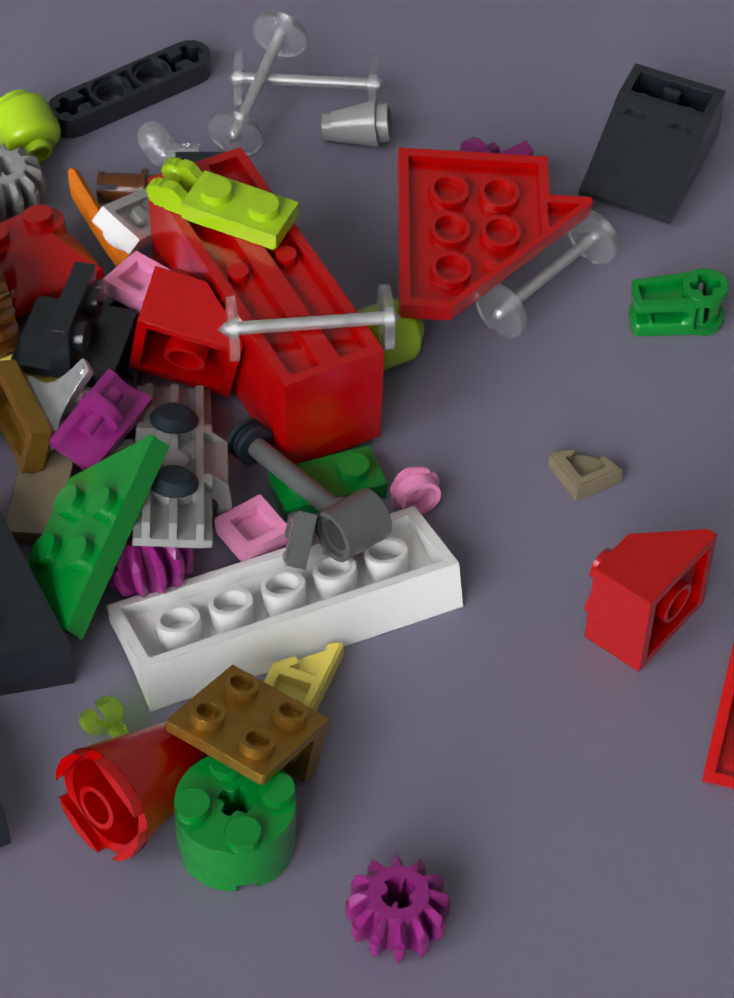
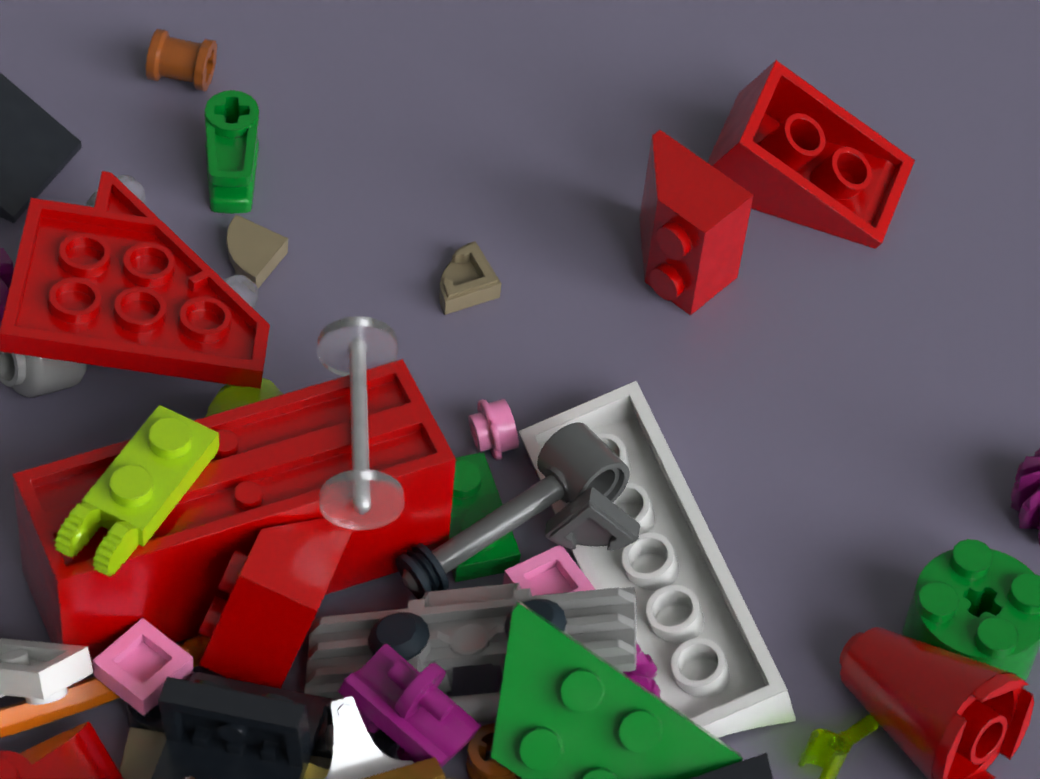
camera: 90 degrees left, 0 degrees up
(252, 727) = (880, 582): pearl gold bracket -> none
(307, 677) = (770, 570): light yellow tile -> none
(580, 333) = (254, 249): none -> dark tan tile

